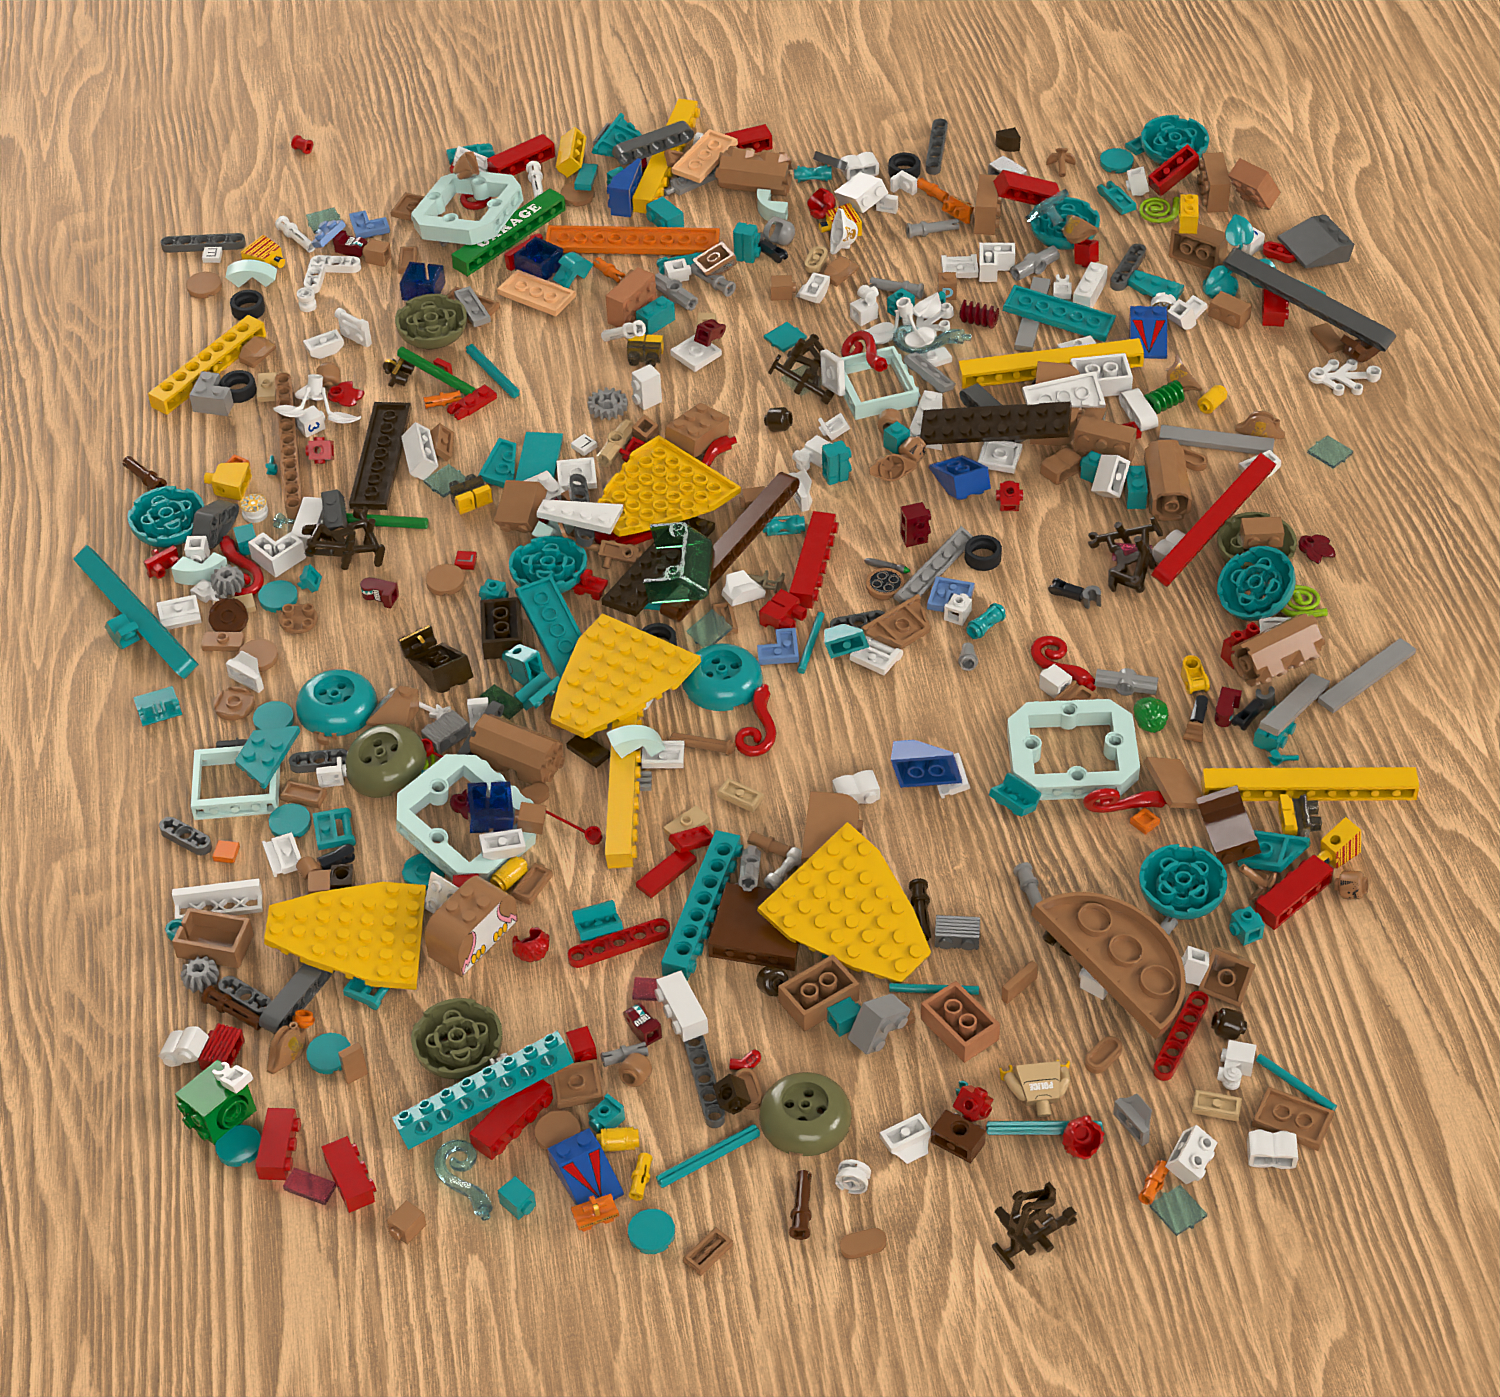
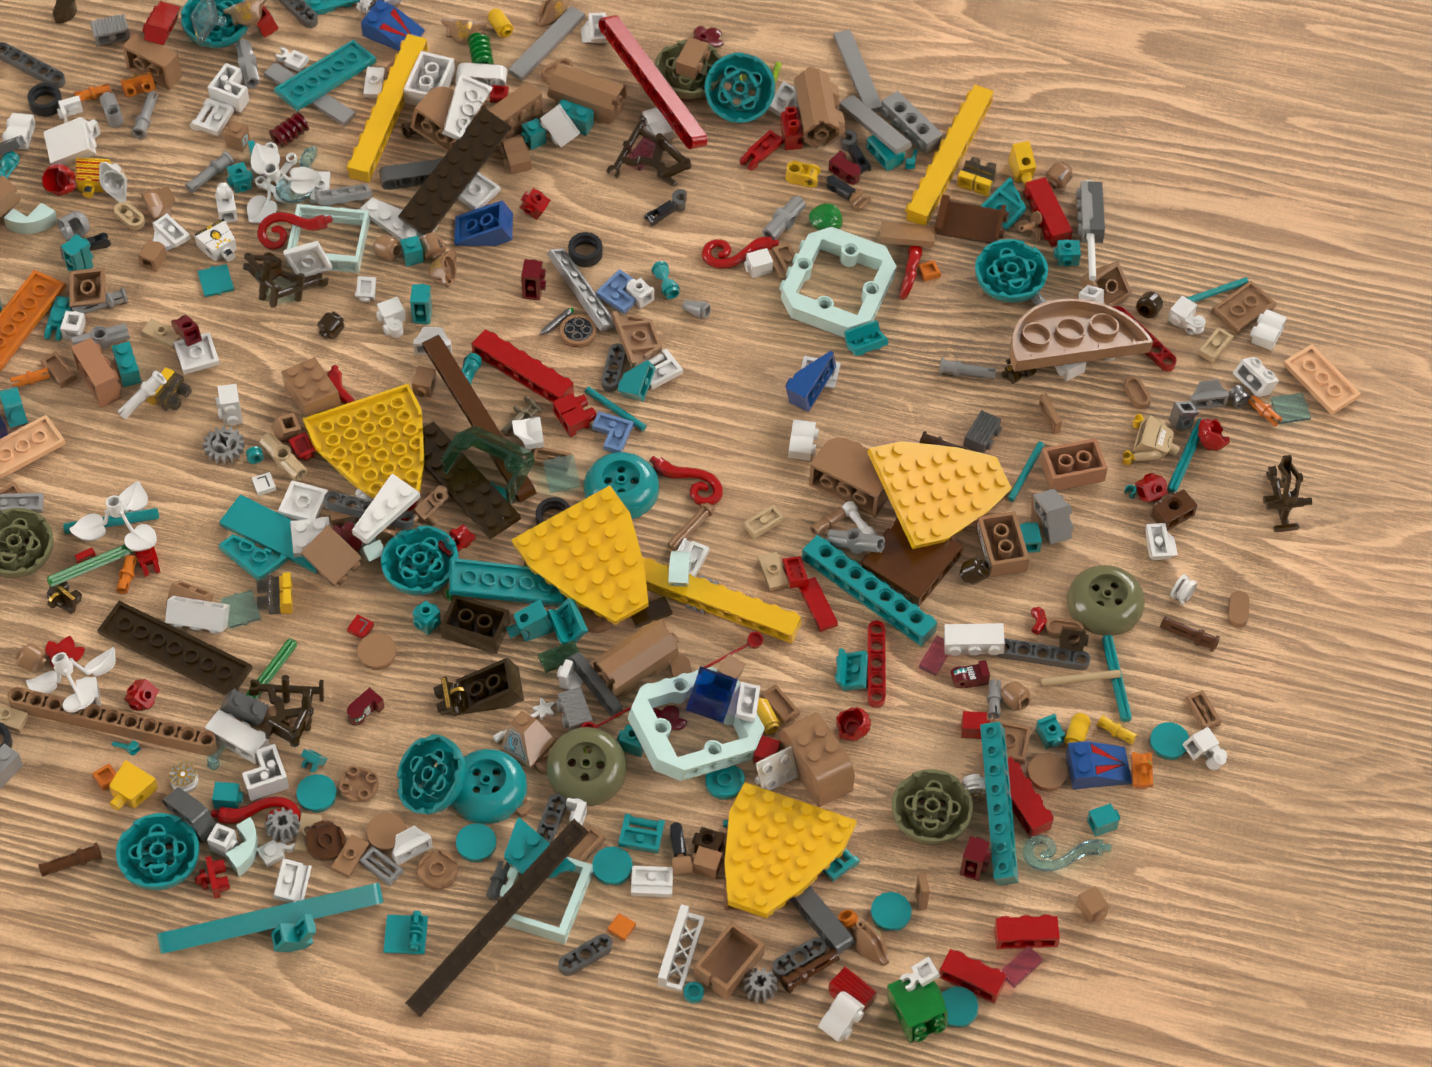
camera: 70 degrees left, 10 degrees up
(188, 749) = (496, 918): none -> dark brown plate
(221, 674) = (393, 876): none -> light grey tile
(320, 656) = (426, 787): none -> teal brick
(410, 1089) = (975, 858): none -> dark red brick
(473, 357) = (134, 499): none -> white plant
(608, 425) = (254, 455): none -> teal bush
(655, 1258) = (1205, 744): none -> white brick
(688, 1120) = (1081, 678): none -> tan bar
(824, 318) = (217, 241): none -> torso
(918, 206) = (111, 109): none -> light grey piece
(1085, 1104) = (1183, 415): none -> flat silver brick
(1091, 285) = (308, 38): white brick -> none
(1156, 1148) = (1238, 396): none -> flat silver wheel
(1200, 635) = (761, 149): none -> red hinge
(1236, 1226) = (1322, 379): none -> light nougat plate
(1306, 928) = (1091, 219): none -> piece
(1328, 736) = (911, 123): none -> light grey brick

